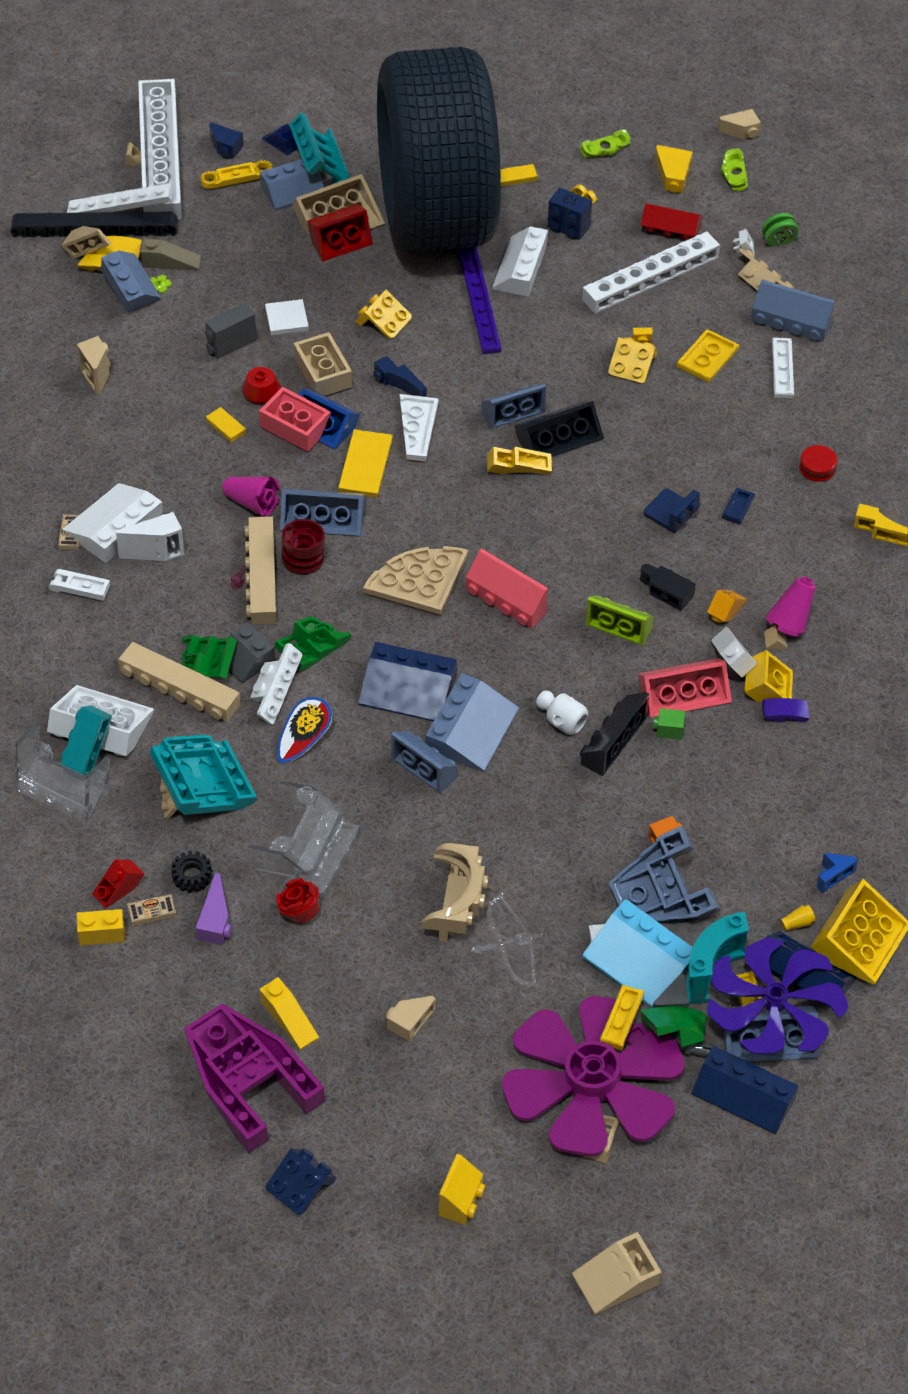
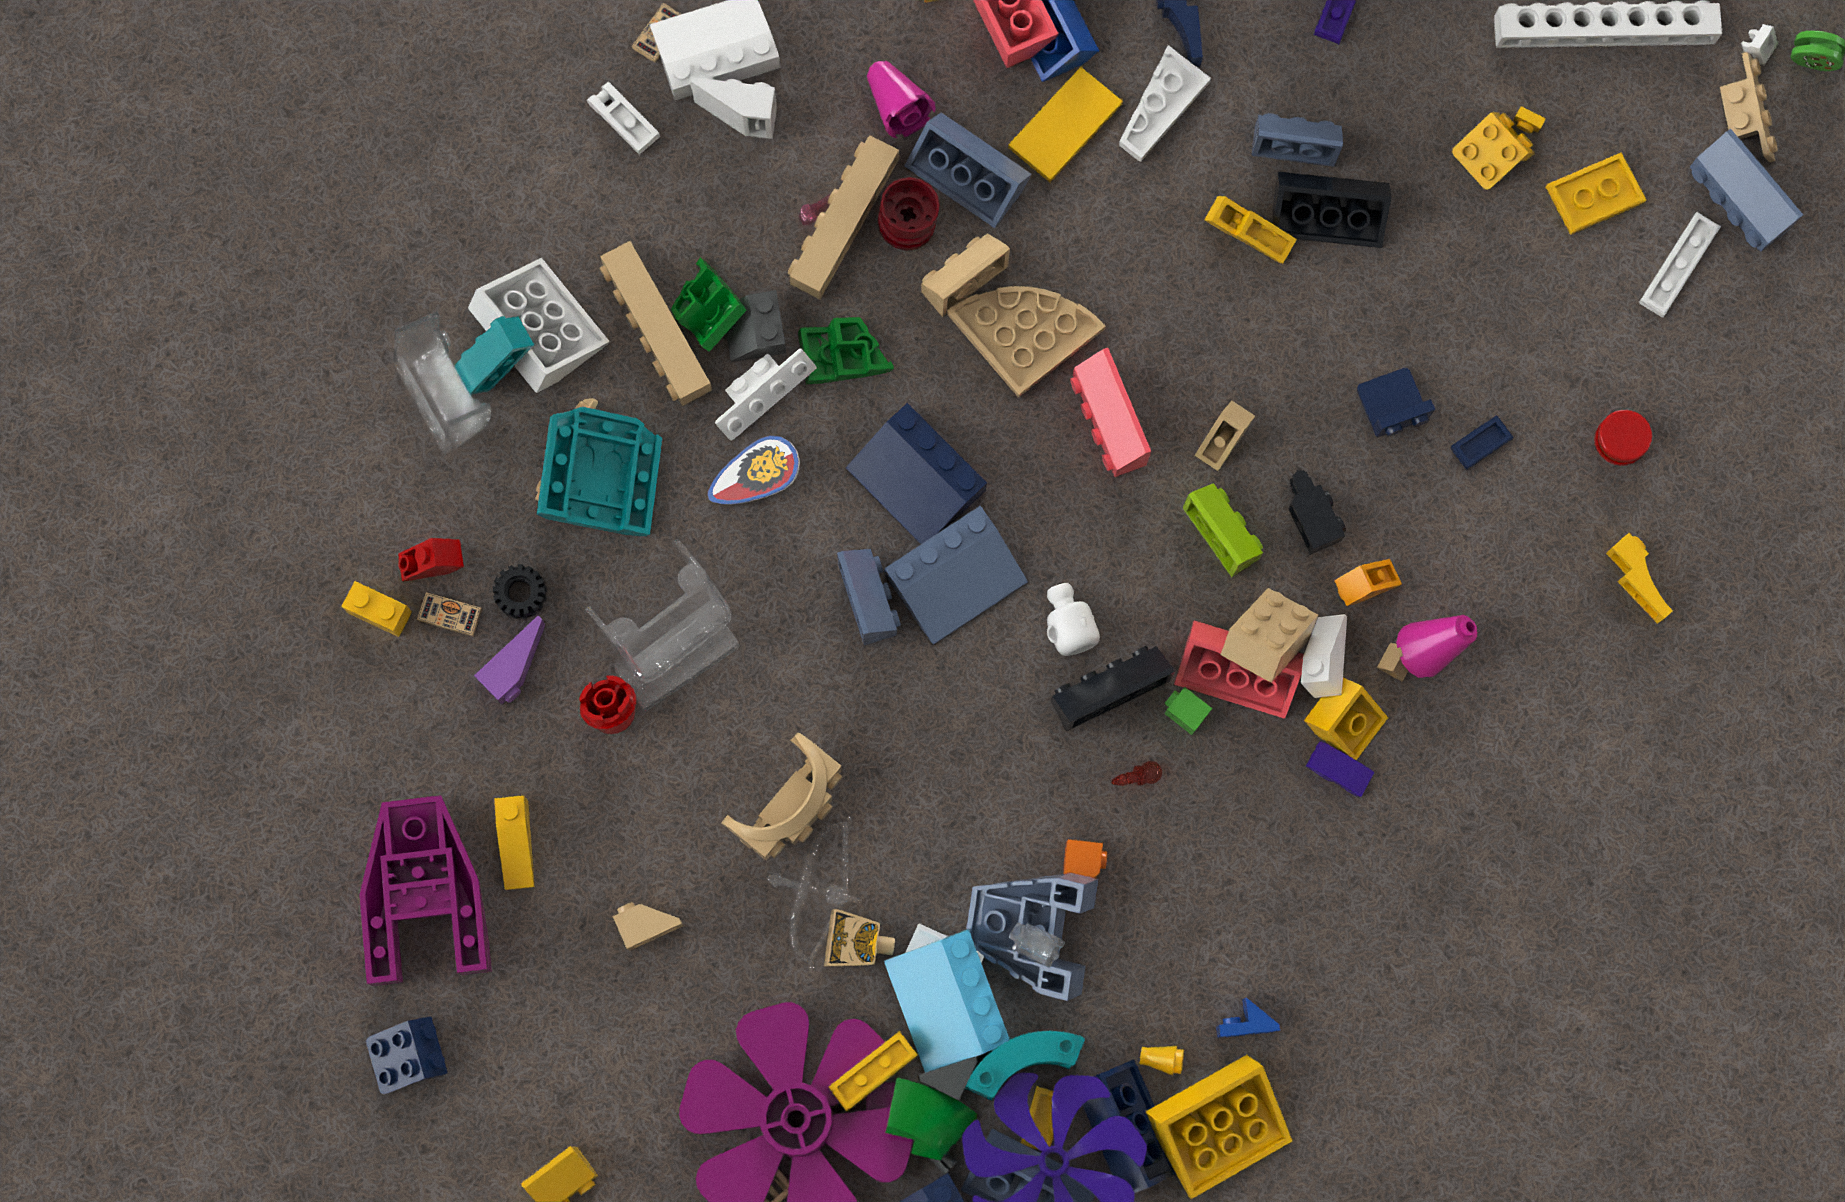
camera: 30 degrees right, 25 degrees up
(361, 561) = (965, 272): none -> tan slope
(554, 953) = (854, 940): none -> torso
(583, 572) = (1224, 435): none -> tan slope
(669, 772) = (1148, 772): none -> clear red bar
(676, 882) = (1036, 944): none -> clear hips
(691, 650) = (1269, 635): none -> tan brick

